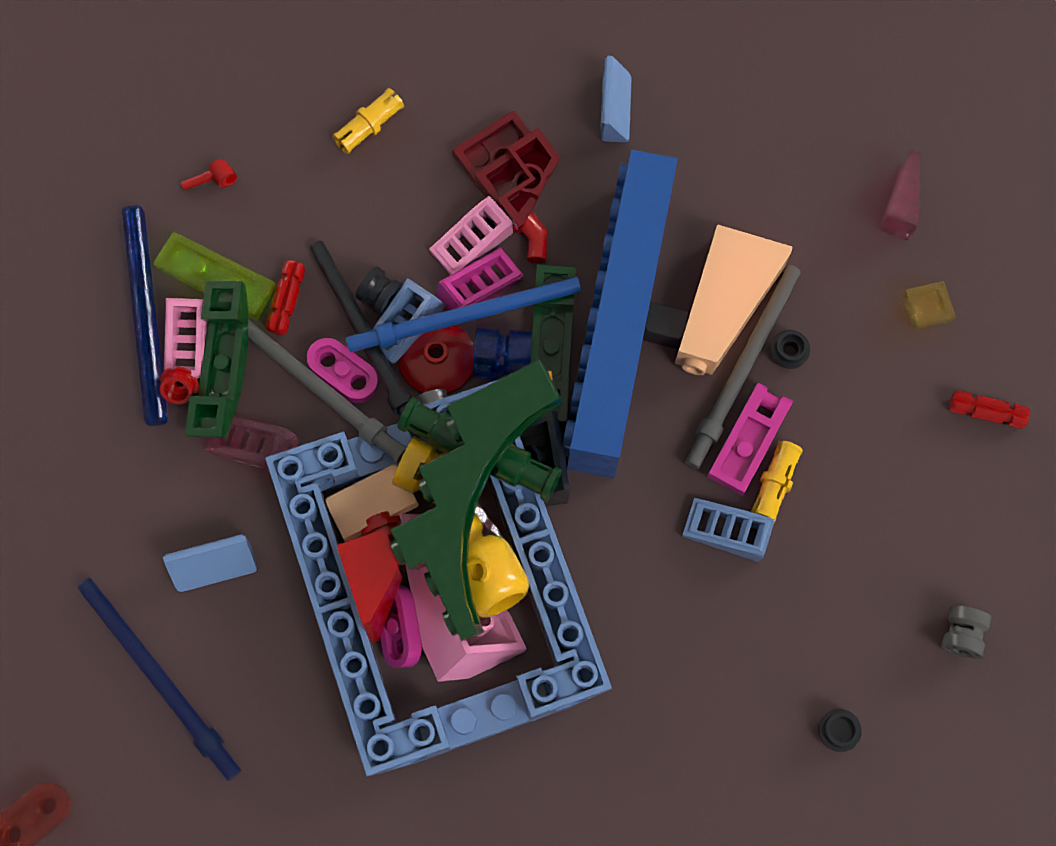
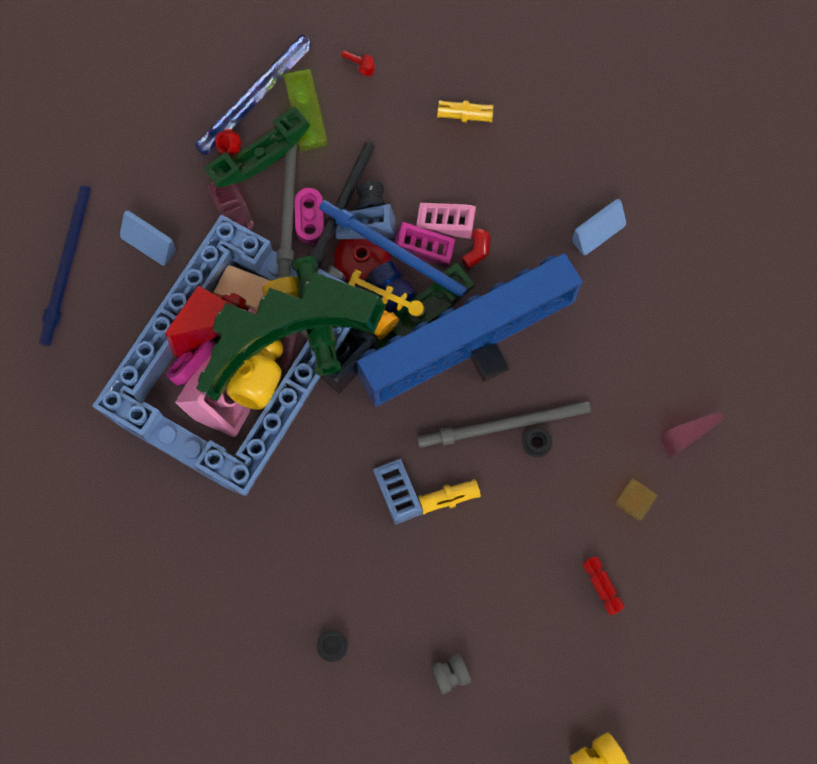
camera: 50 degrees right, 0 degrees up
(172, 323) = (261, 111): bright pink slope -> none
(285, 297) = (325, 154): red axle -> none
(509, 165) = (506, 202): dark red slope -> none
(556, 344) = (415, 308): none -> yellow piece
(730, 289) = (538, 380): light nougat slope -> none
(749, 440) = (461, 461): dark pink plate -> none

